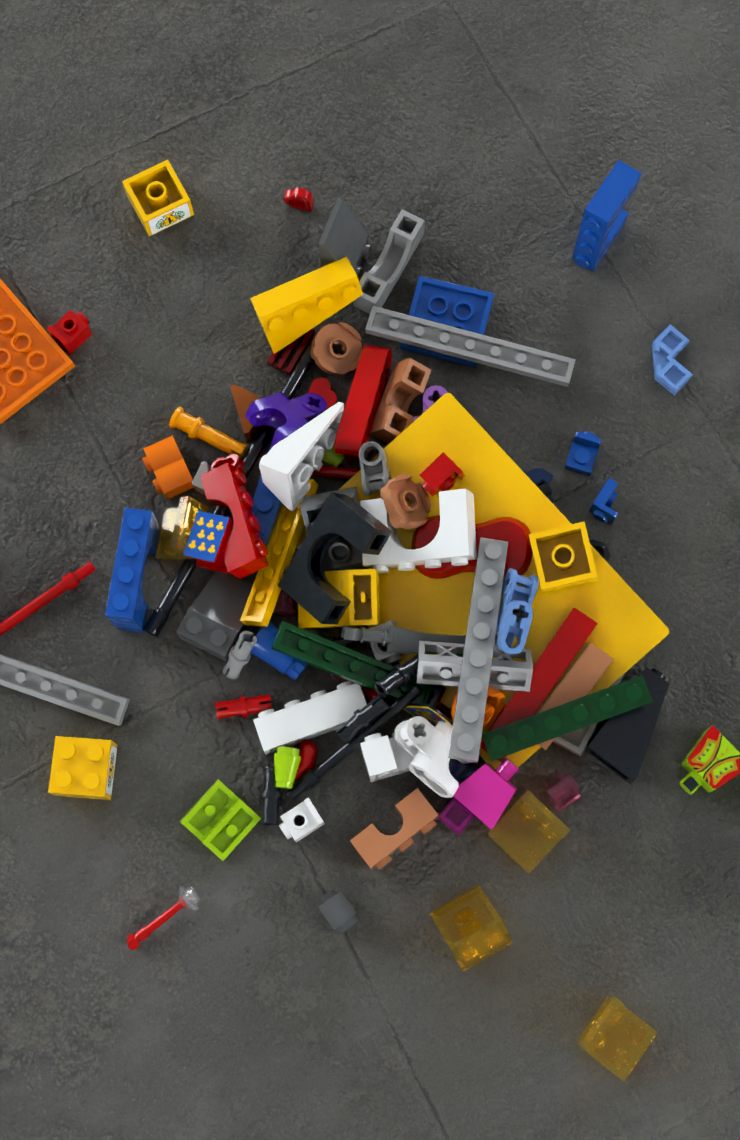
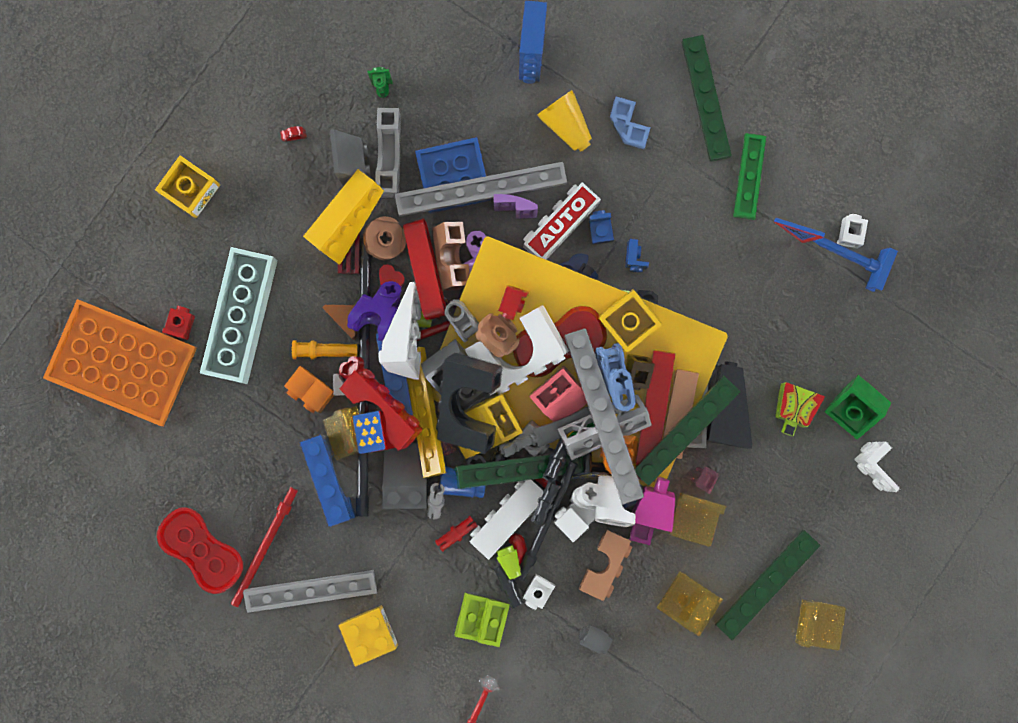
camera: 30 degrees left, 10 degrees up
(136, 352) = (239, 315): none -> light aqua brick
(421, 186) = (380, 79): none -> green hinge
(440, 605) = (559, 395): none -> coral slope
(498, 378) = (523, 207): none -> medium lavender slope
(543, 425) = (561, 222): none -> brick
(555, 622) = (645, 367): none -> dark brown brick
(575, 955) = (767, 584): none -> dark green plate
(602, 321) = (567, 121): none -> yellow cone

